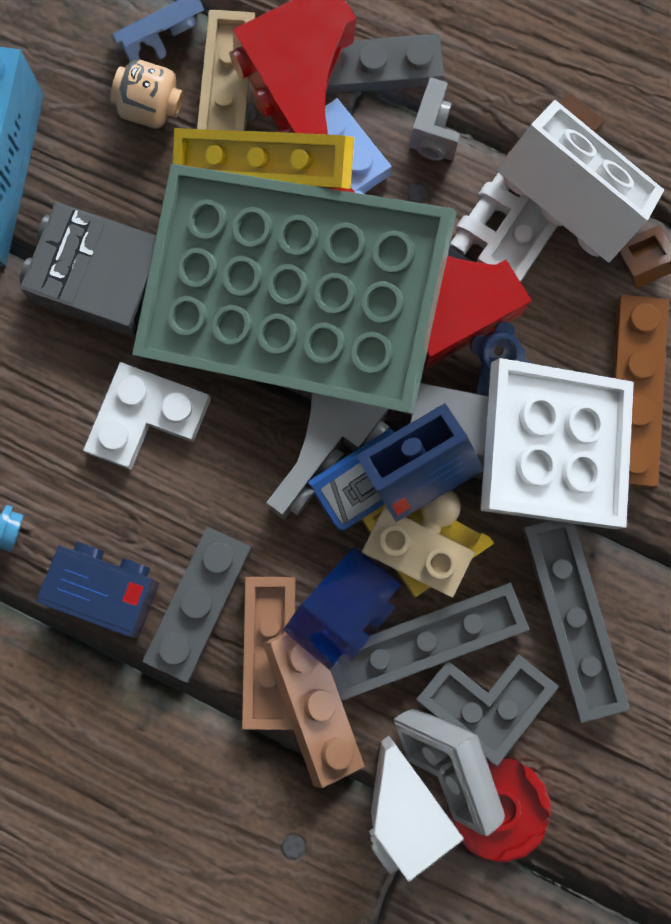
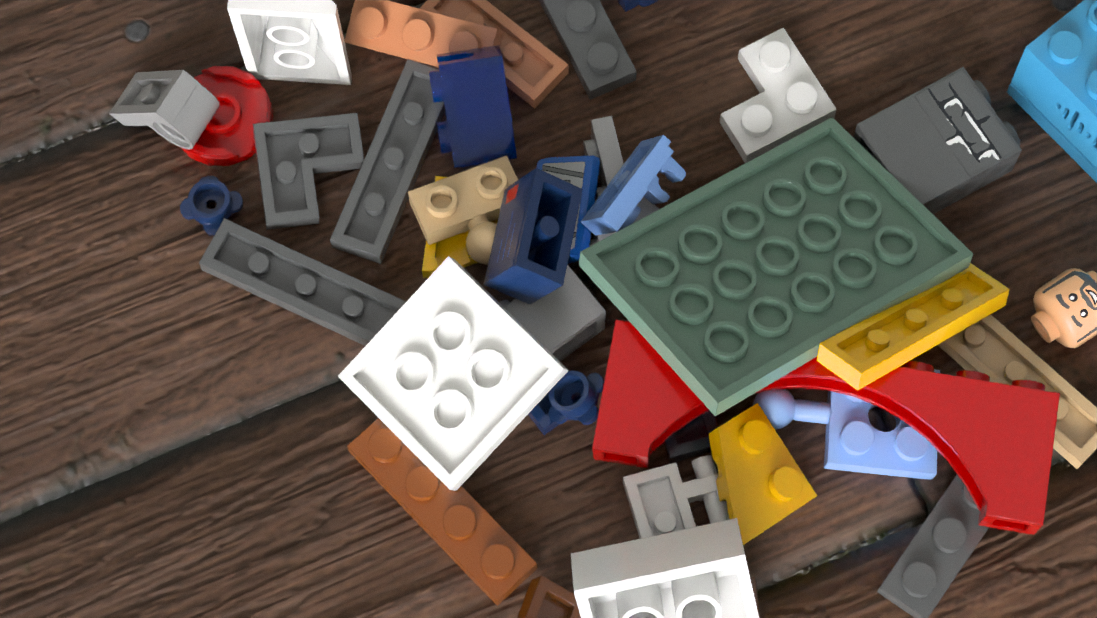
camera: 130 degrees right, 10 degrees down
(318, 432) = (636, 179): none -> medium blue plate
(428, 132) = (848, 537): light grey bracket -> none
(453, 186) = (756, 473): none -> yellow wing
(459, 764) = (281, 90): light grey brick -> none
(540, 851) = (169, 104): none -> light grey plate
(586, 756) = (210, 190): none -> dark blue plate

